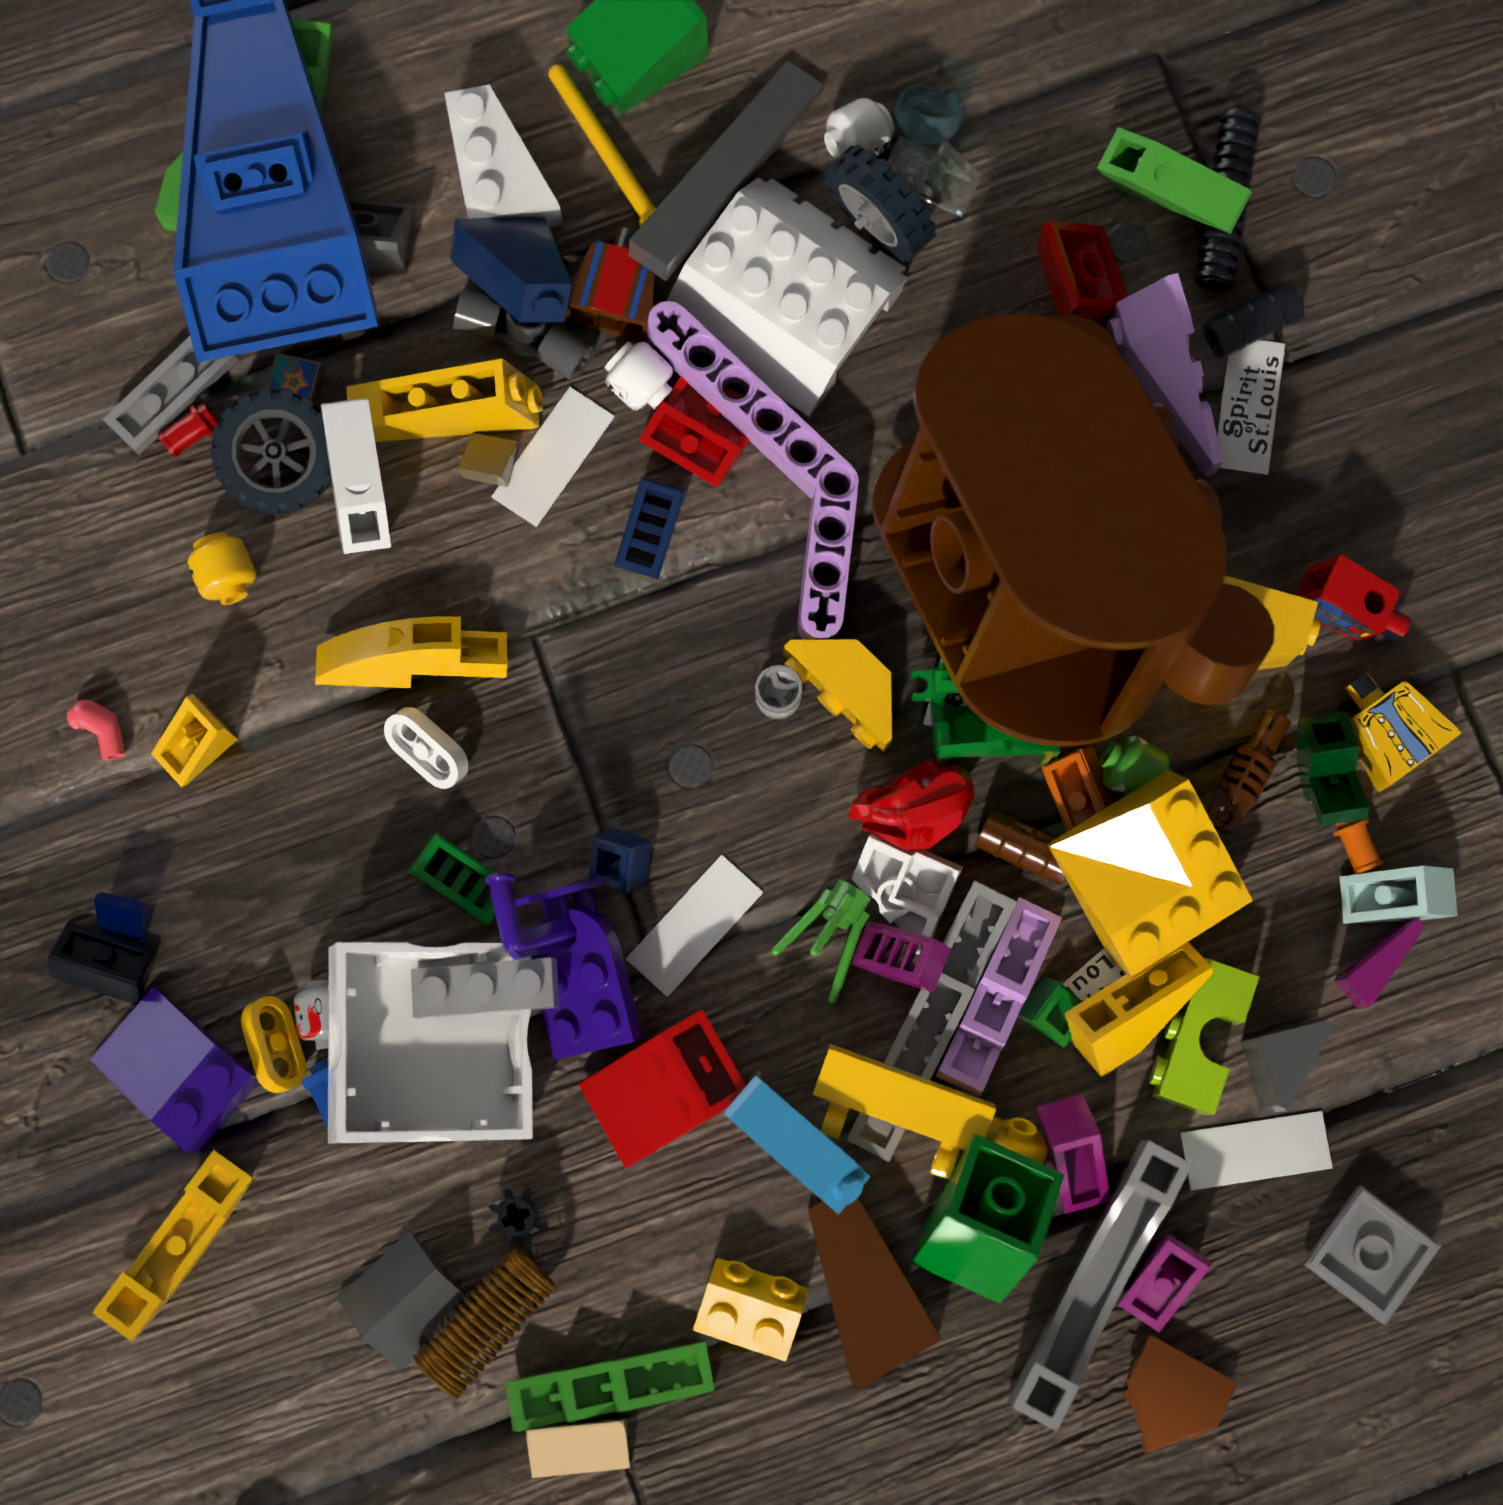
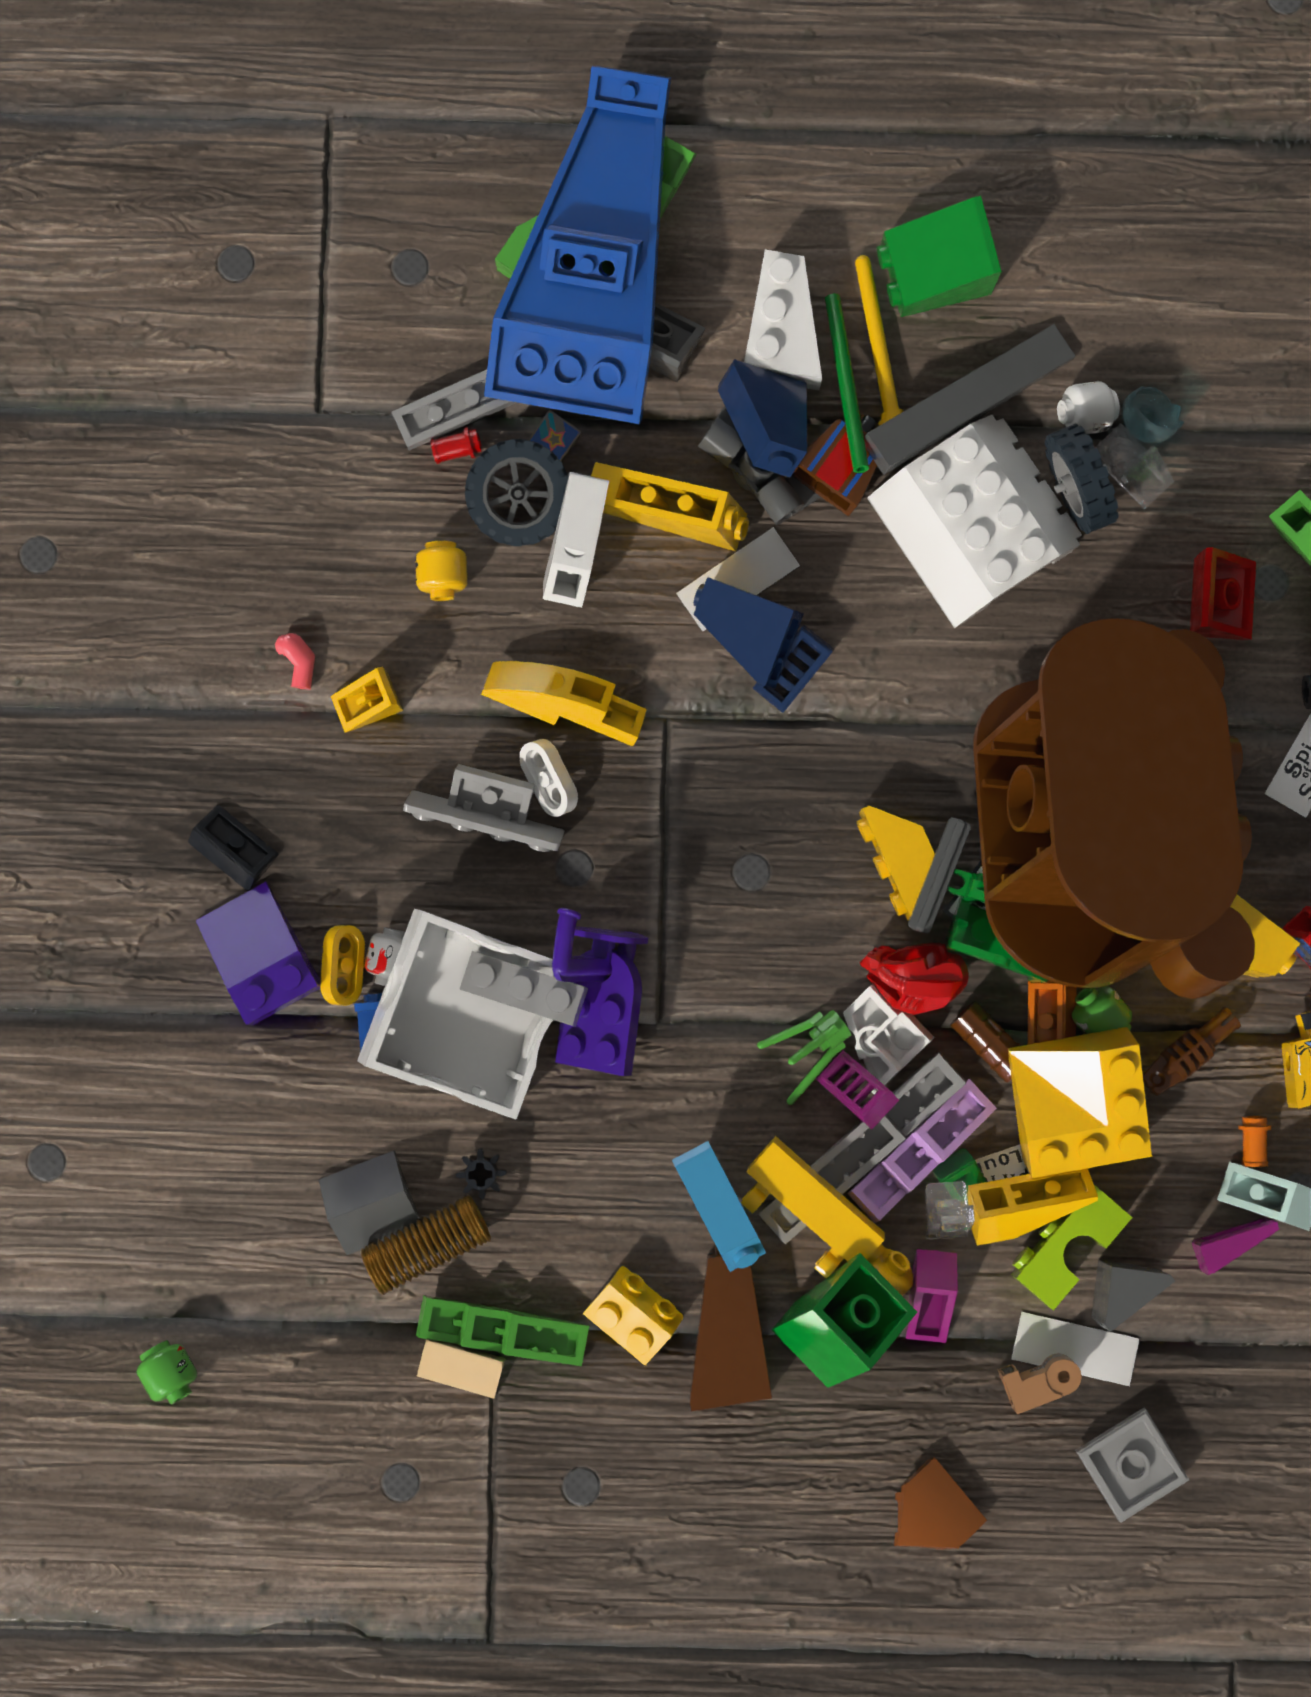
camera: 20 degrees right, 5 degrees up
(122, 916) = (262, 818): clear blue slope -> none
(174, 1247) = (209, 1091): yellow slope -> none
(369, 803) = (489, 805): none -> light grey bracket
(426, 857) = (513, 865): green slope -> none
(488, 459) = (685, 562): dark tan slope -> none
(583, 497) = (748, 627): none -> dark blue slope
(588, 202) = (846, 383): none -> green piece
(620, 860) = (666, 926): dark blue slope -> none
(639, 375) = (832, 542): white head -> none
(663, 1089) = (632, 1120): red slope -> none
(694, 925) = (705, 999): white sticker -> none
(696, 434) = (867, 602): red slope -> none
(776, 447) = (919, 644): lavender beam -> none
(776, 683) = (847, 838): light grey wheel -> none
(897, 685) = (939, 875): none -> dark grey axle
(1054, 1051) = (948, 1210): none -> clear slope
(1096, 1283) = (886, 1421): light grey arch -> none
(1154, 341) = (1257, 678): lavender wedge -> none
(1164, 1282) = (961, 1422): magenta slope -> none
(1231, 1208) = (1041, 1384): none -> medium nougat leg
(1327, 768) = (1254, 1076): dark green brick -> none

